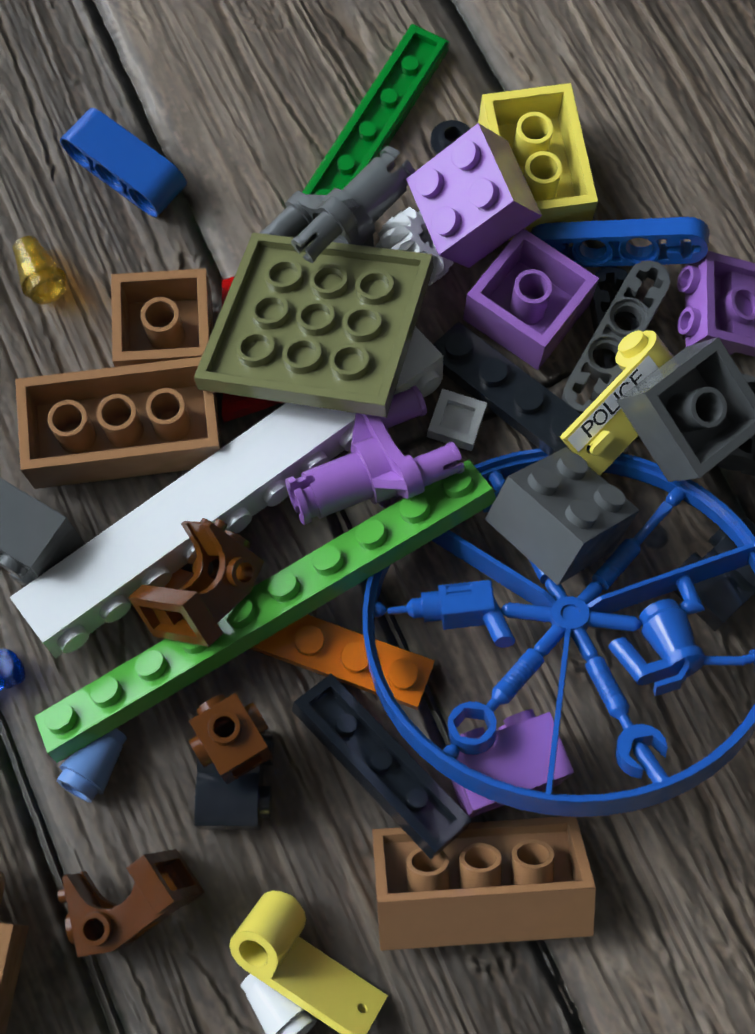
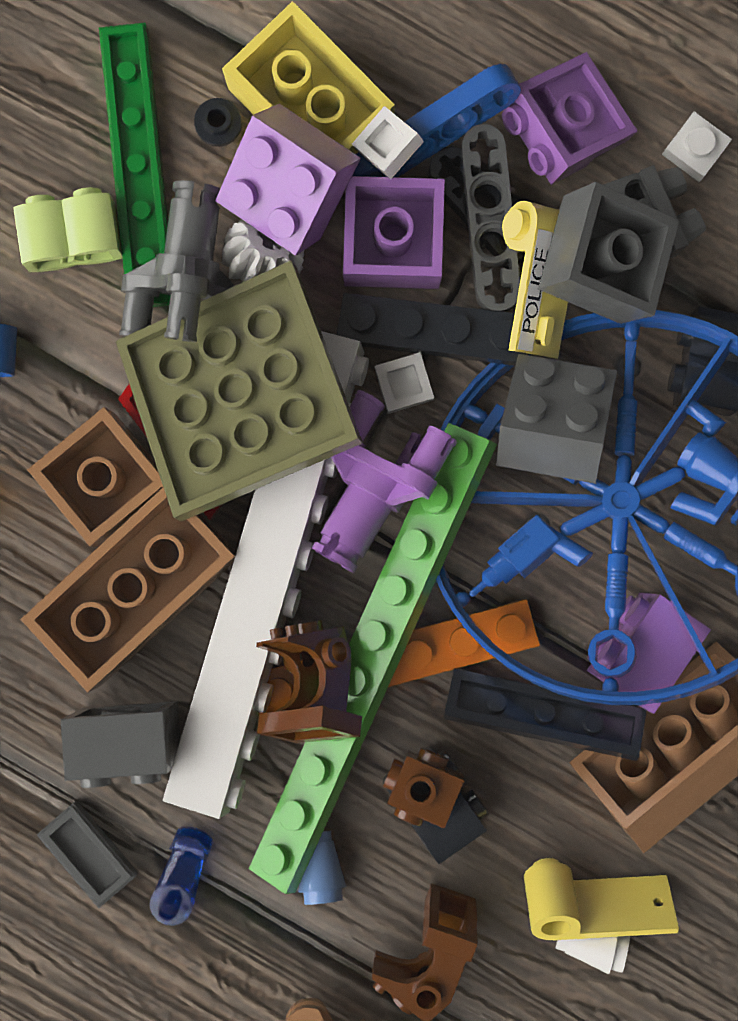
camera: 30 degrees left, 15 degrees up
(278, 141) = (67, 230): none -> yellowish green brick
(572, 222) = (387, 142): none -> white plate

